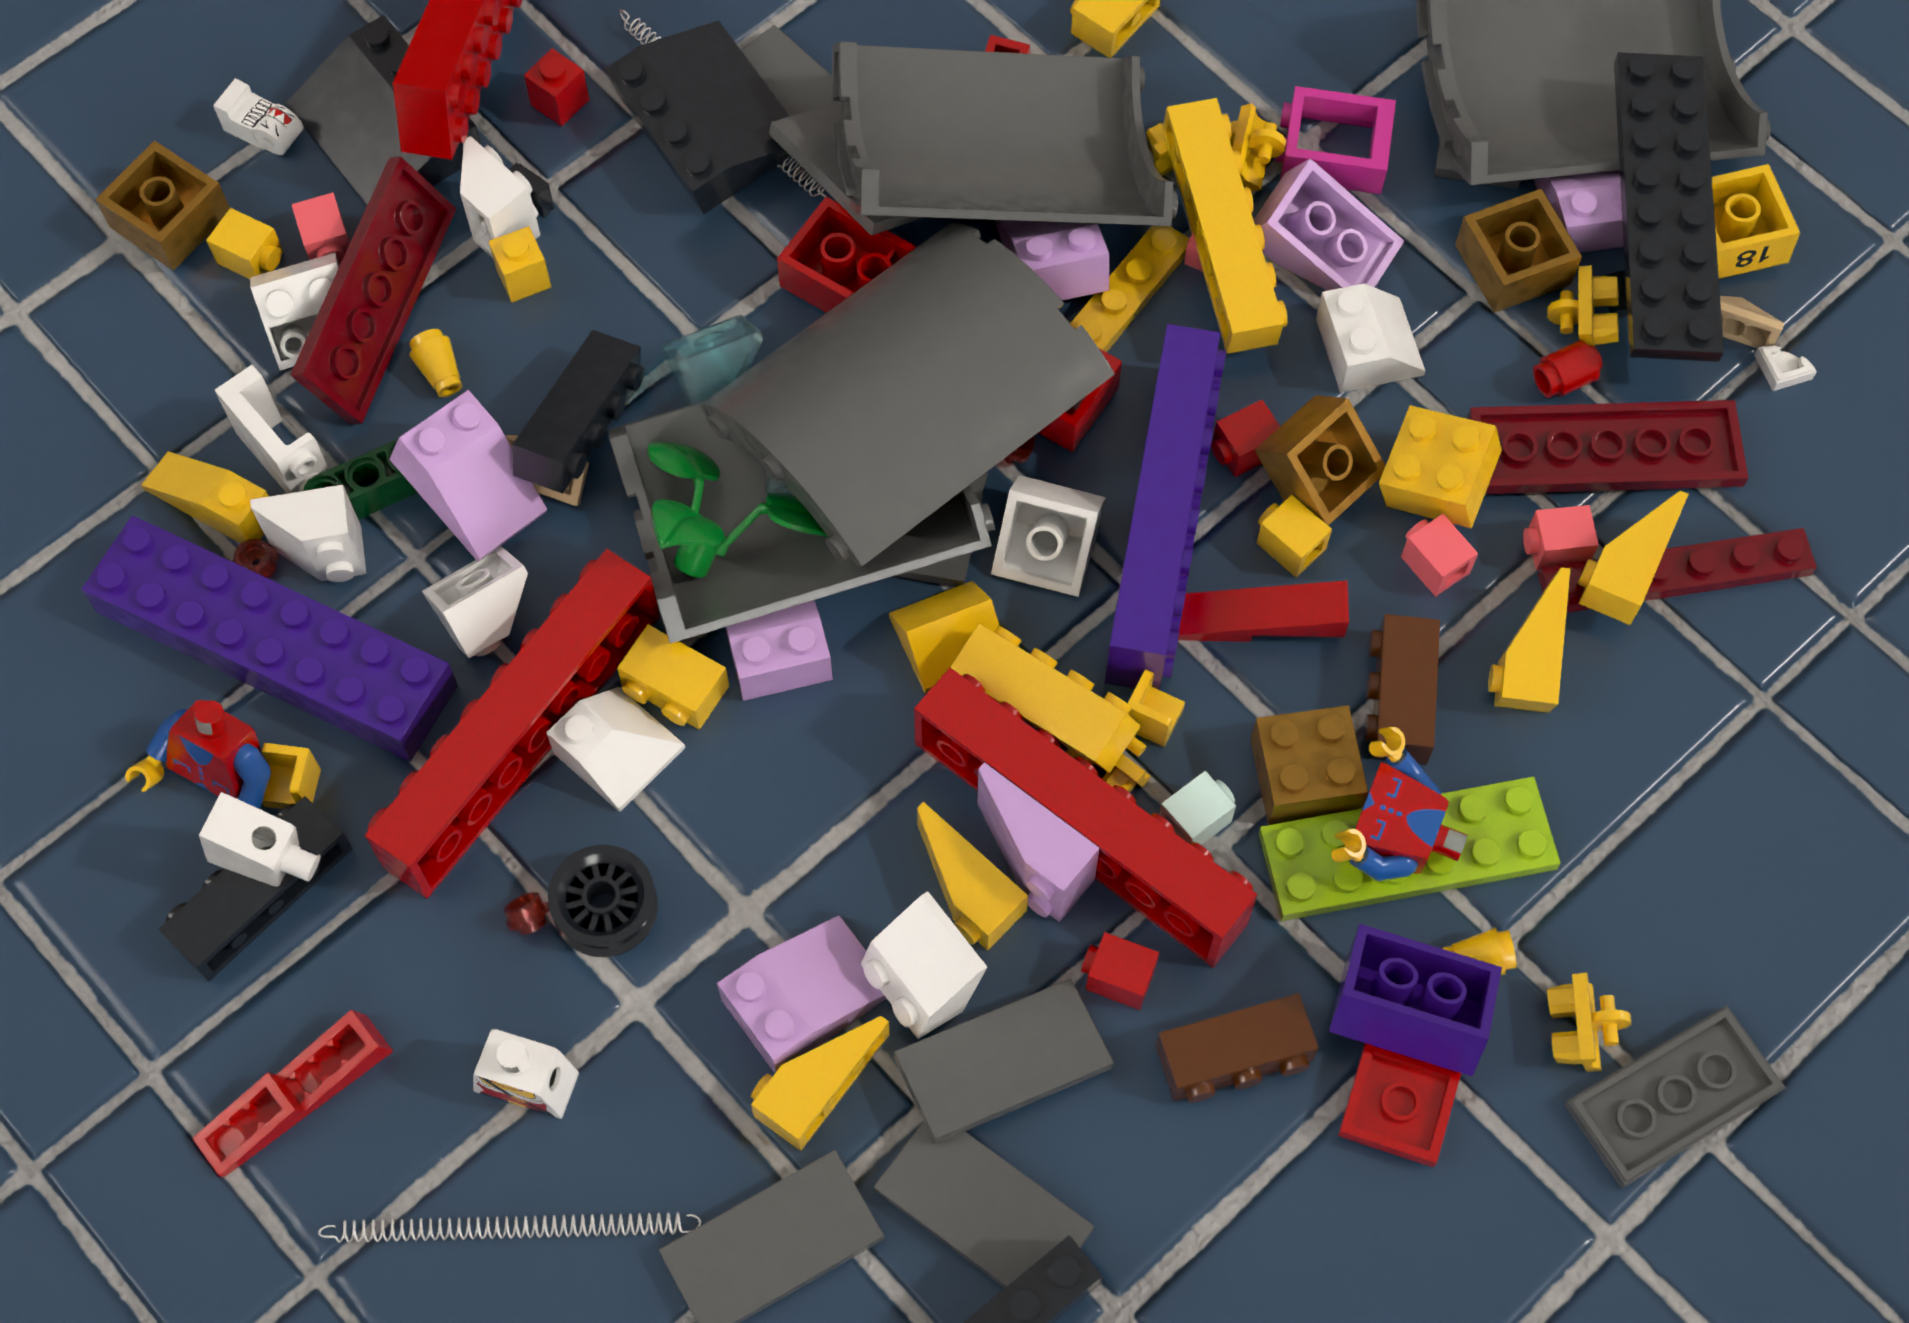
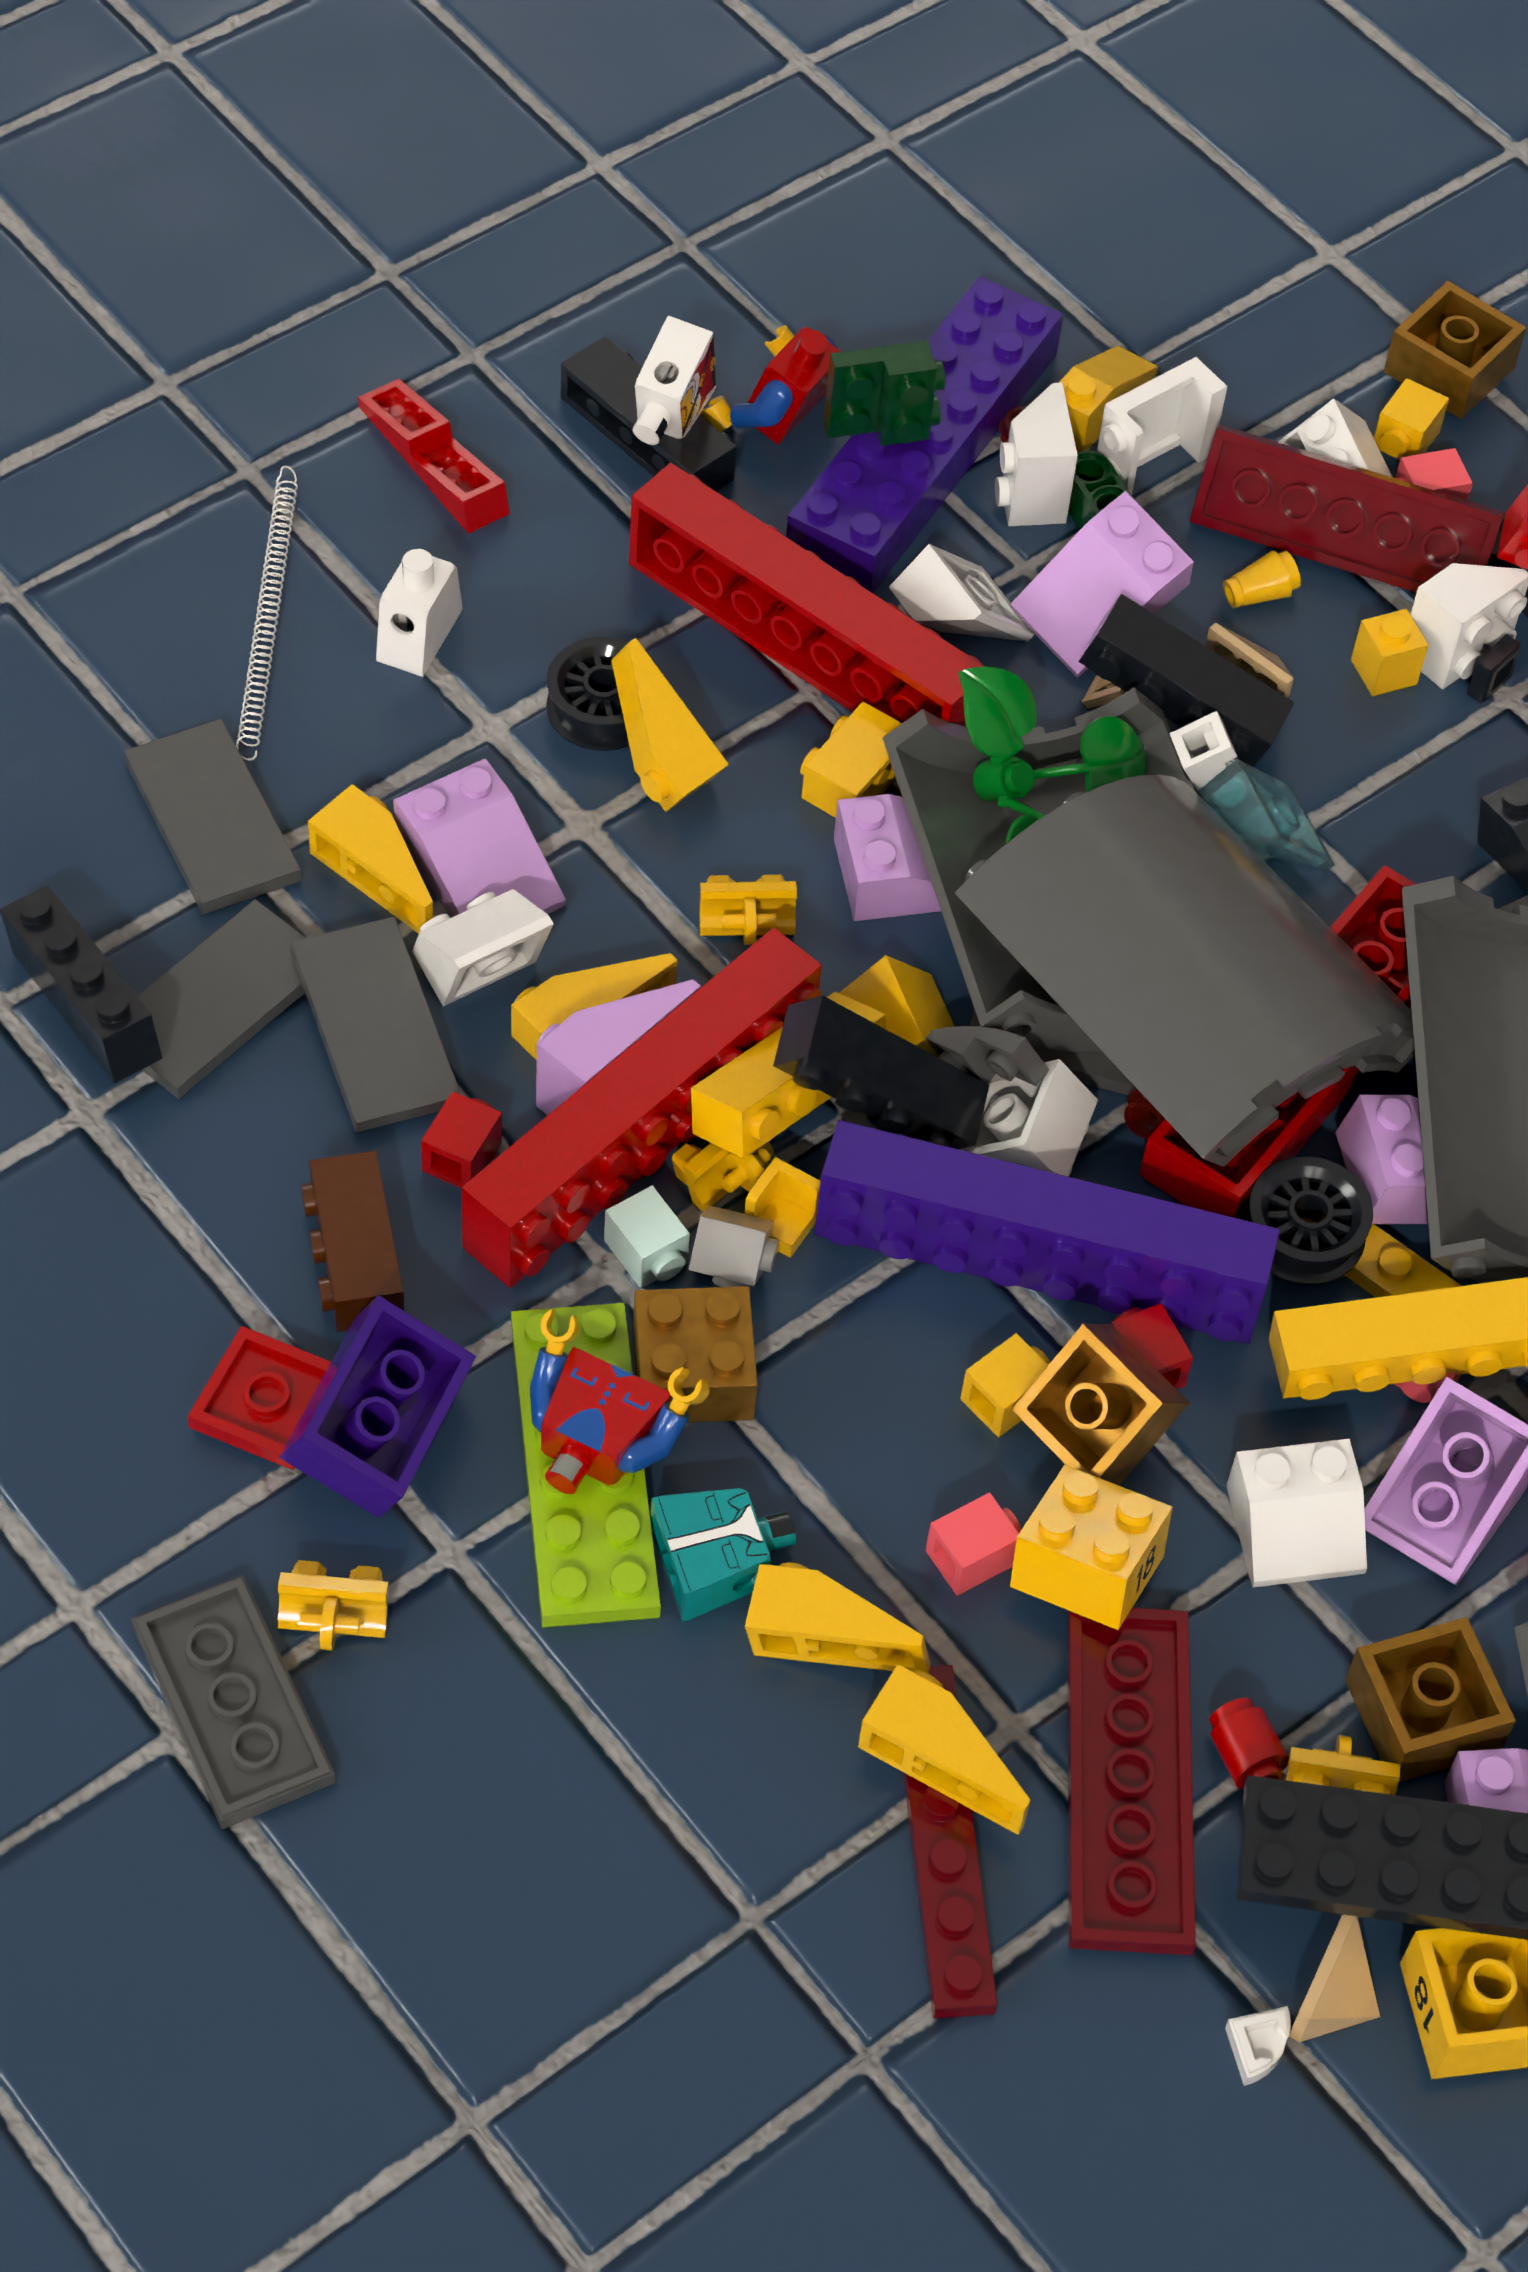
camera: 90 degrees right, 10 degrees down
(284, 639) = (884, 392): none -> dark green plate
(292, 775) = (765, 454): yellow panel -> none
(526, 913) = (595, 624): clear red plate -> none
(537, 368) = (1250, 658): none -> tan slope
(613, 745) = (780, 708): white slope -> none
(664, 388) = (1204, 748): none -> white leg
(667, 835) = (663, 736): none -> yellow slope
(850, 757) = (747, 907): none -> yellow hips
(1000, 563) = (988, 1052): none -> dark grey slope
(1052, 621) = (879, 1074): none -> black brick
(1136, 300) = (1328, 1196): none -> black wheel
(1202, 741) = (733, 1247): none -> light grey brick
(1266, 611) = (903, 1344): red slope -> none
(1404, 682) = (811, 1477): reddish brown brick -> none
(1479, 738) = (714, 1546): none -> teal torso
(1488, 947) = (435, 1512): yellow cone -> none
(1561, 536) = (994, 1689): coral brick -> none

